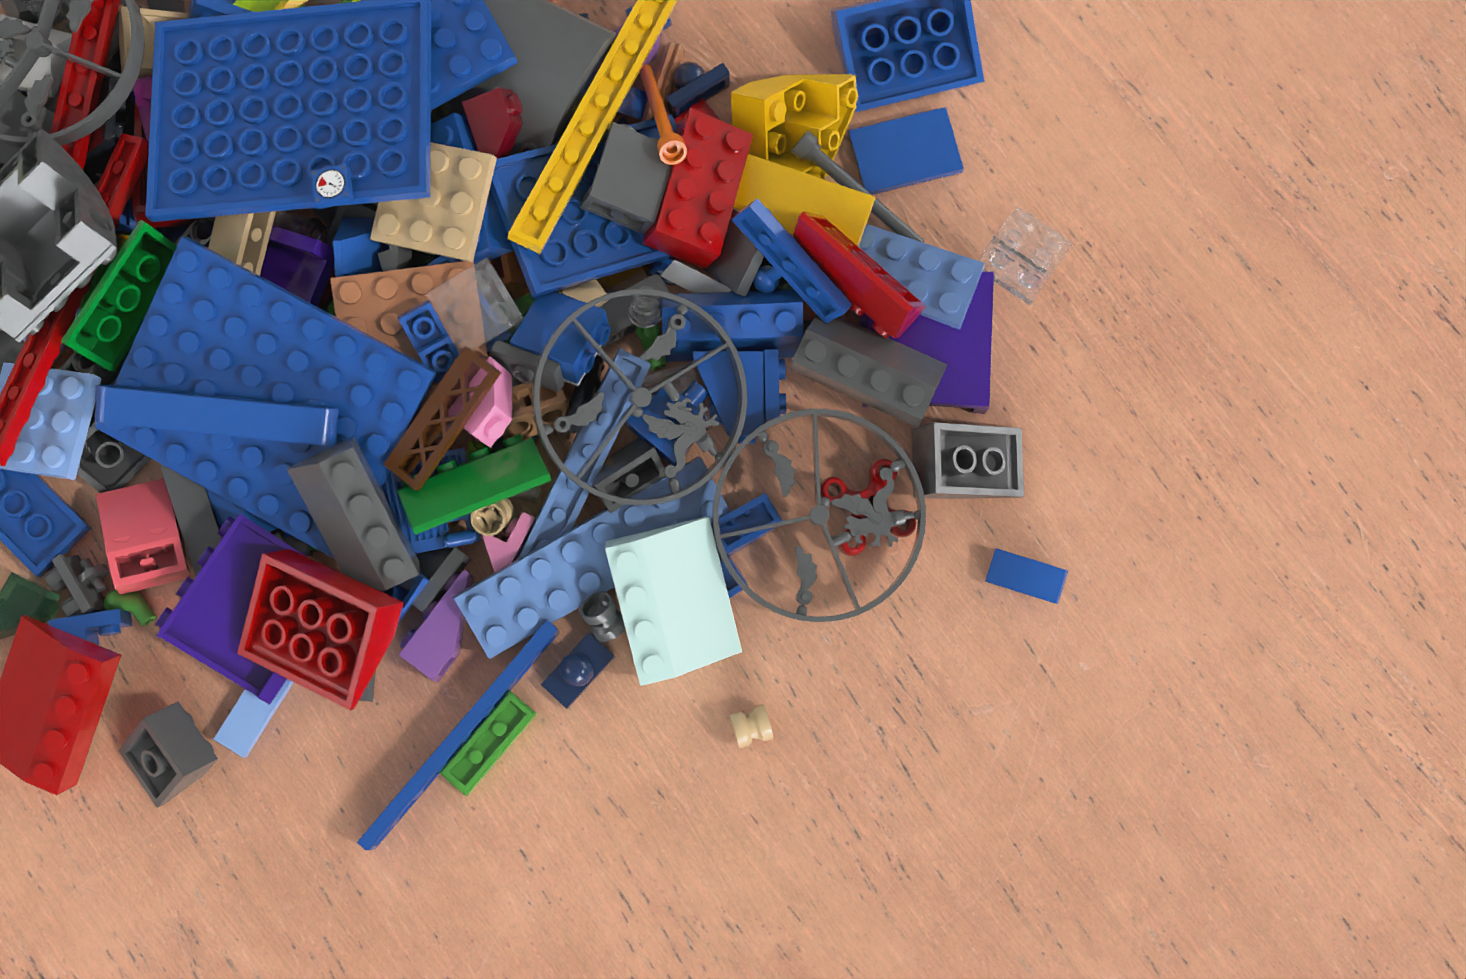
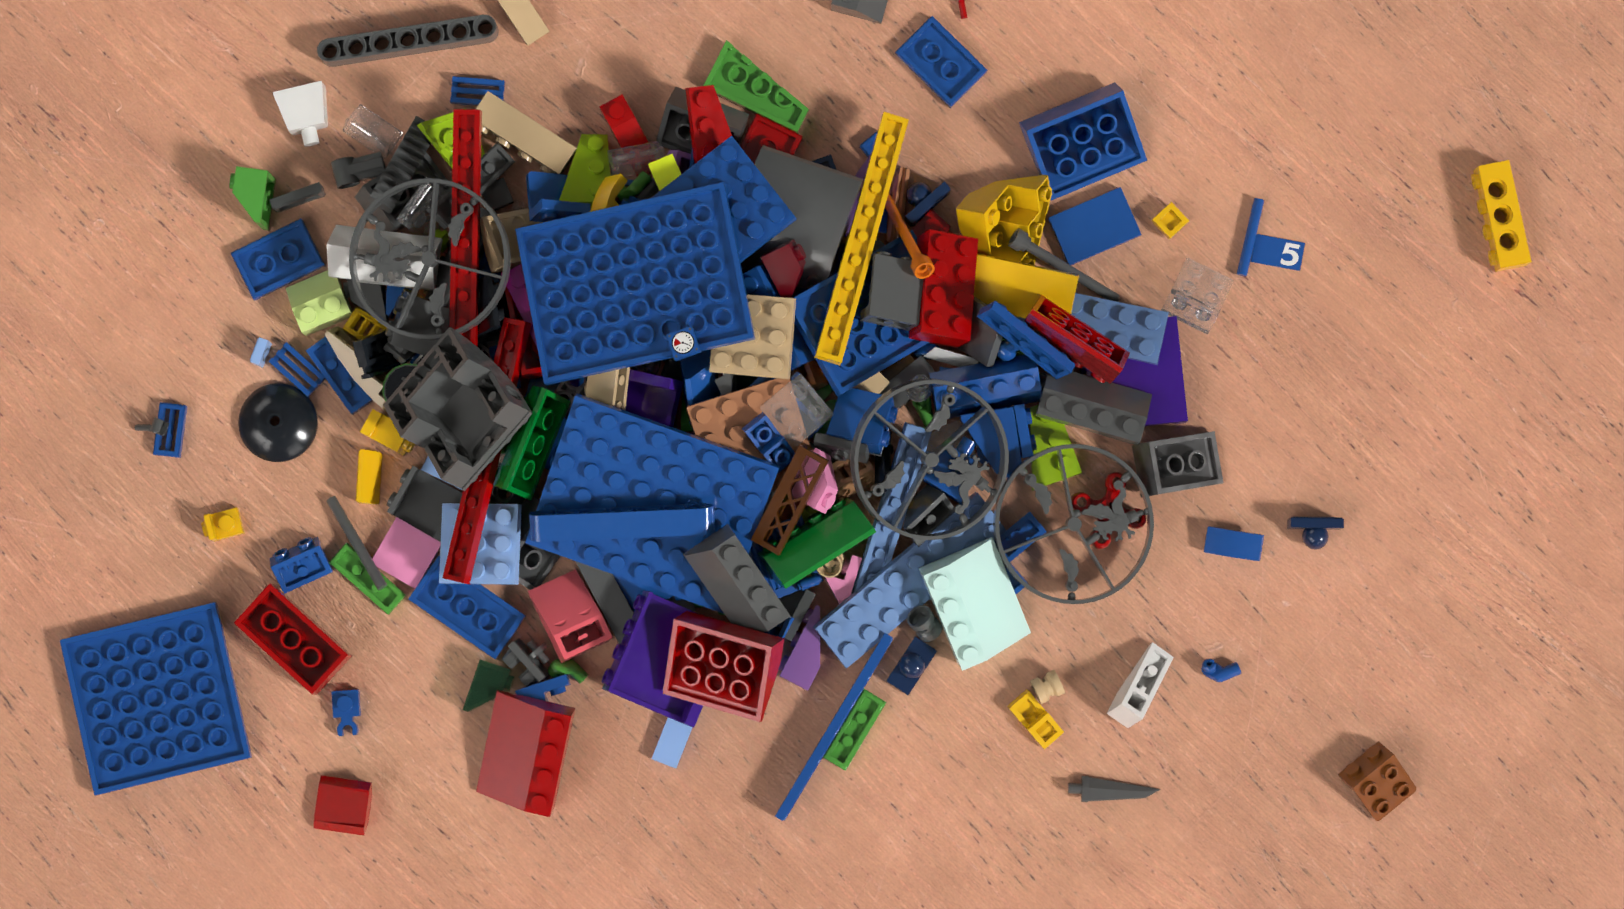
camera: 10 degrees left, 5 degrees up
(167, 753) = (620, 775): dark grey slope -> none
(729, 767) = (1035, 719): none -> yellow slope
(796, 434) = (1047, 435): none -> lime wing
(802, 876) = (1100, 790): none -> dark grey bar
(875, 746) = (1140, 686): none -> white slope
(981, 743) = (1219, 673): none -> blue arm
(1002, 157) = (1170, 220): none -> yellow plate
(1101, 194) = (1250, 237): none -> blue bar
(1134, 218) = (1278, 252): none -> blue sticker
(1137, 573) = (1315, 529): none -> dark blue tile
(1177, 923) = (1378, 781): none -> dark orange bracket
(1434, 164) = (1507, 202): none -> yellow brick

